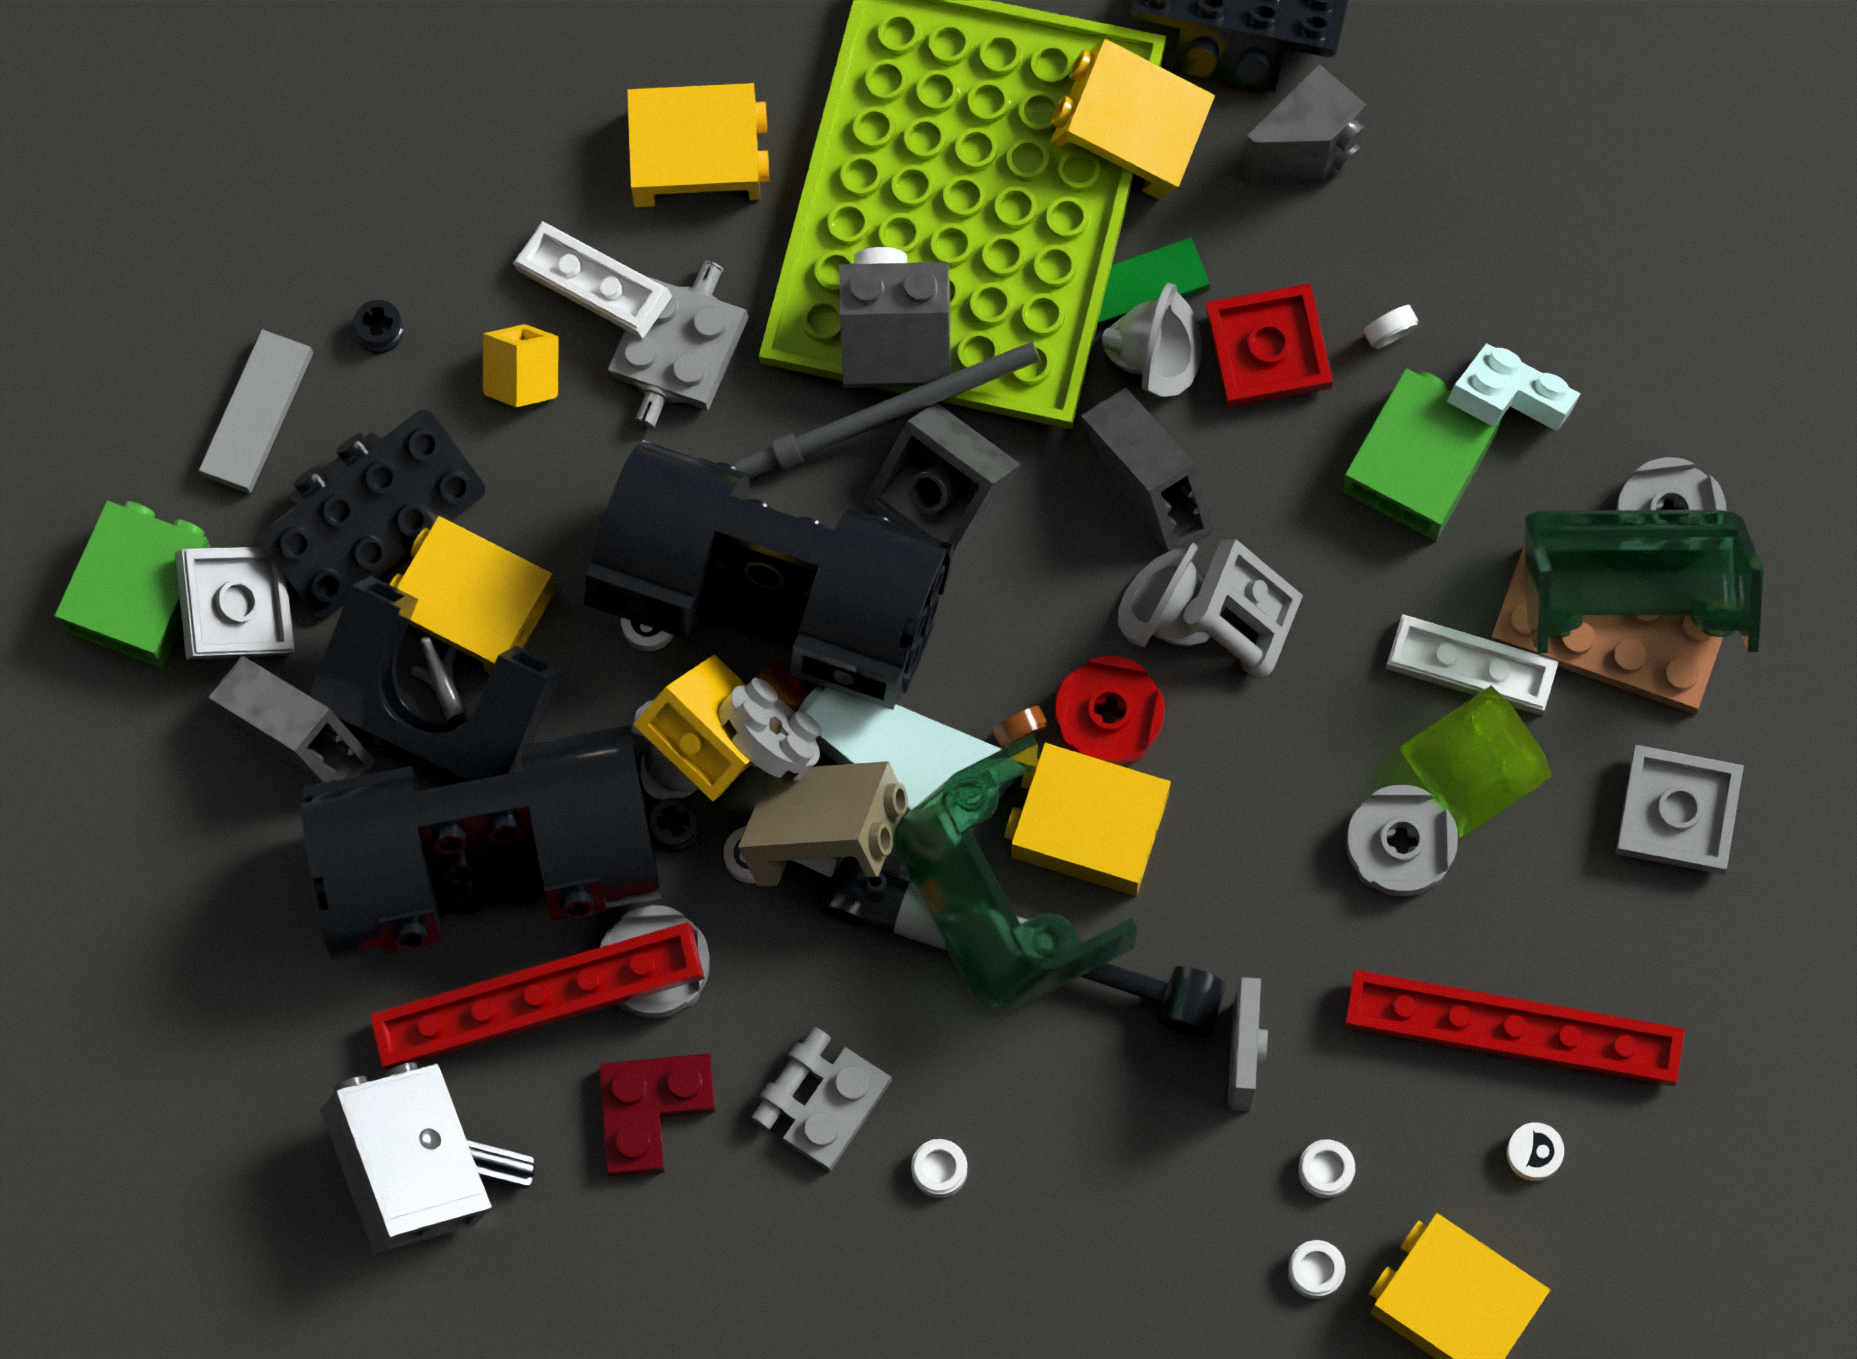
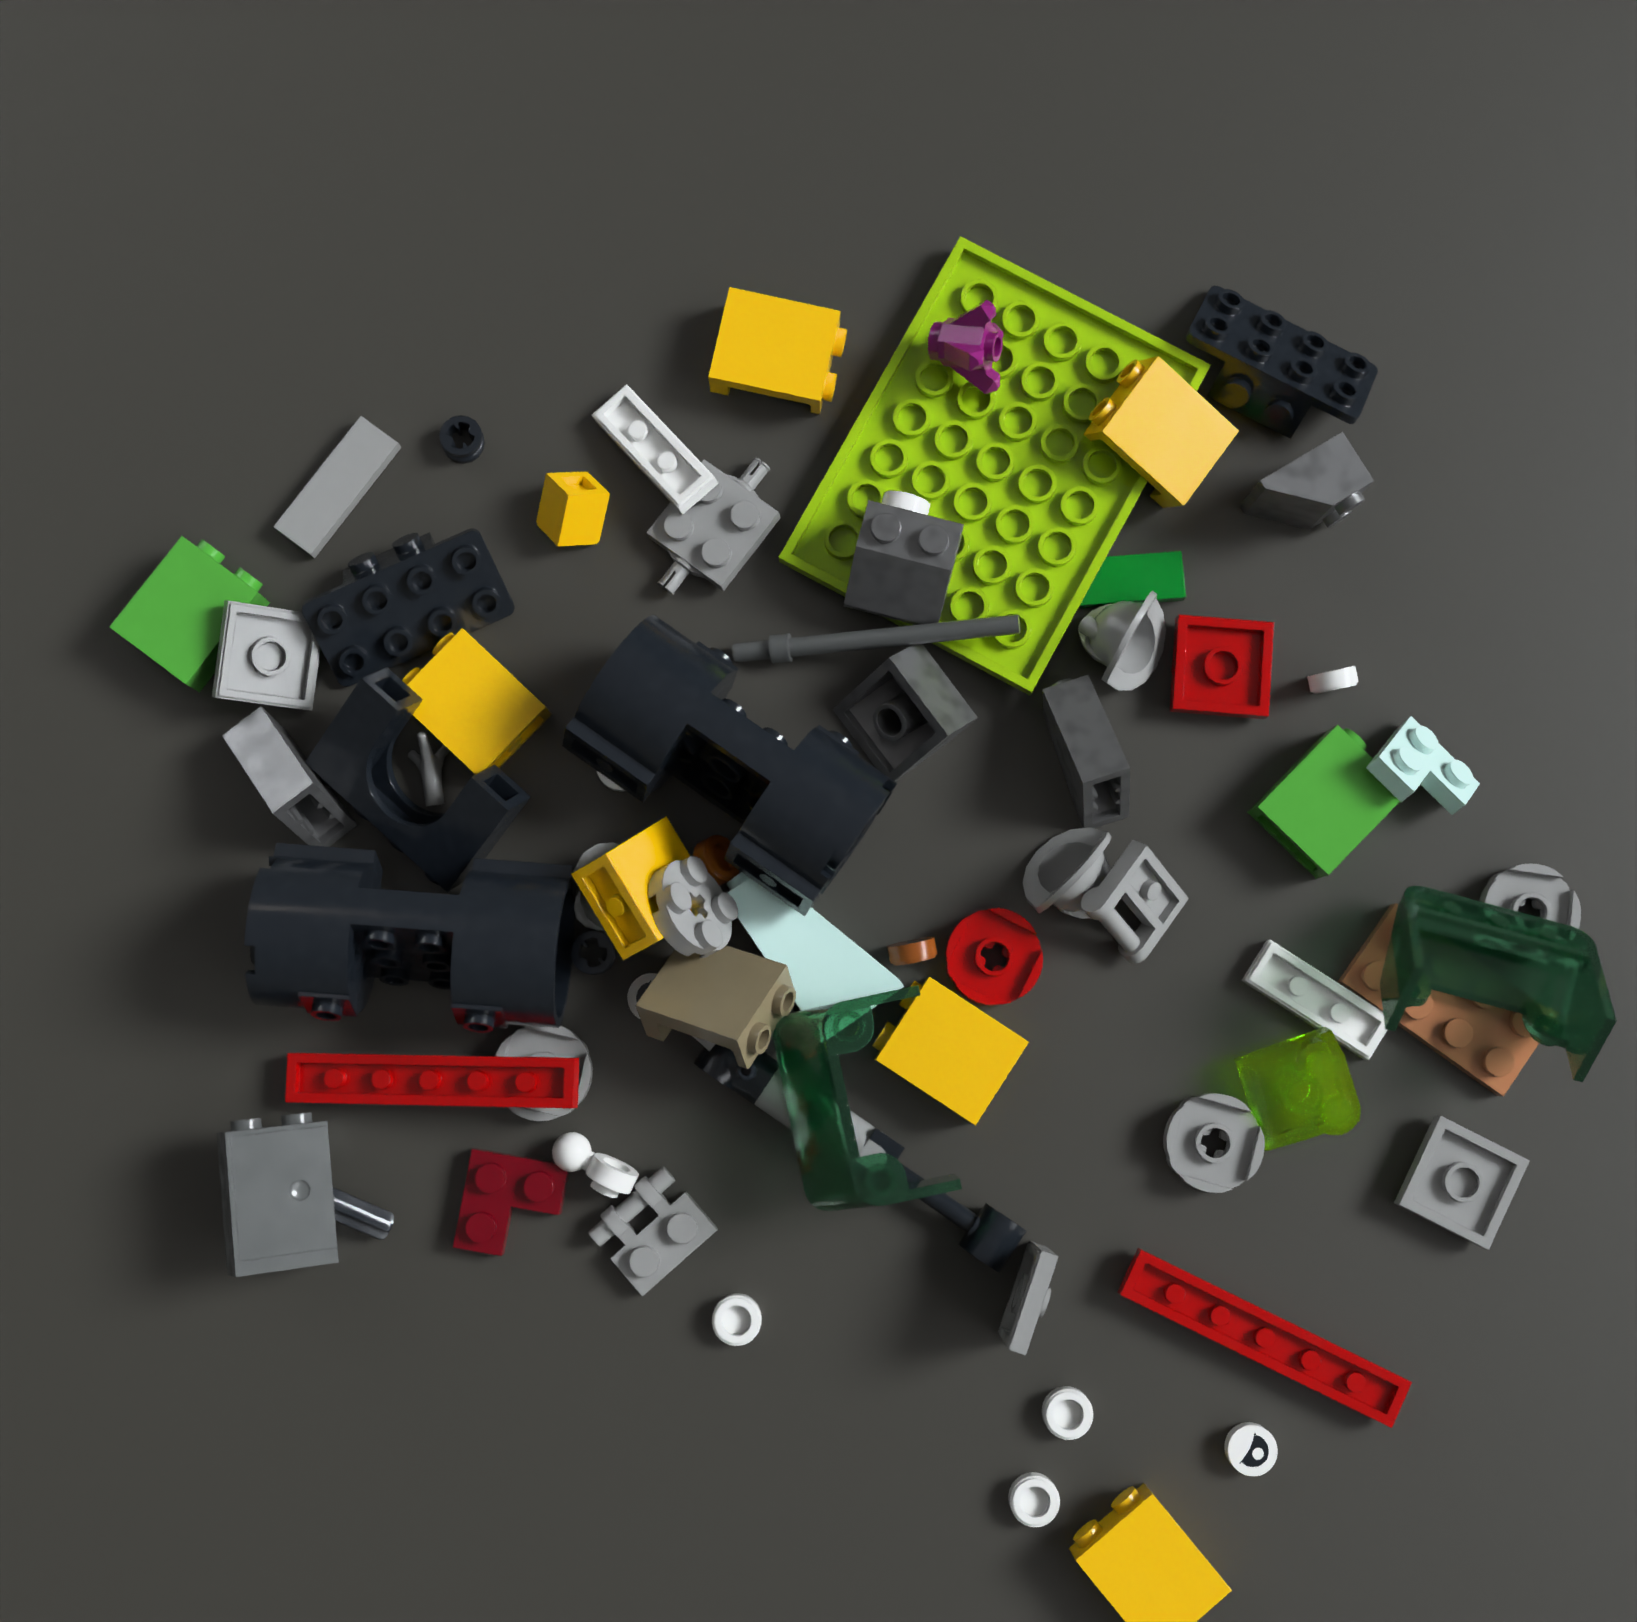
camera: 10 degrees right, 10 degrees up
(712, 1038) = (609, 1175): none -> white plate
(902, 82) = (969, 345): none -> magenta rock

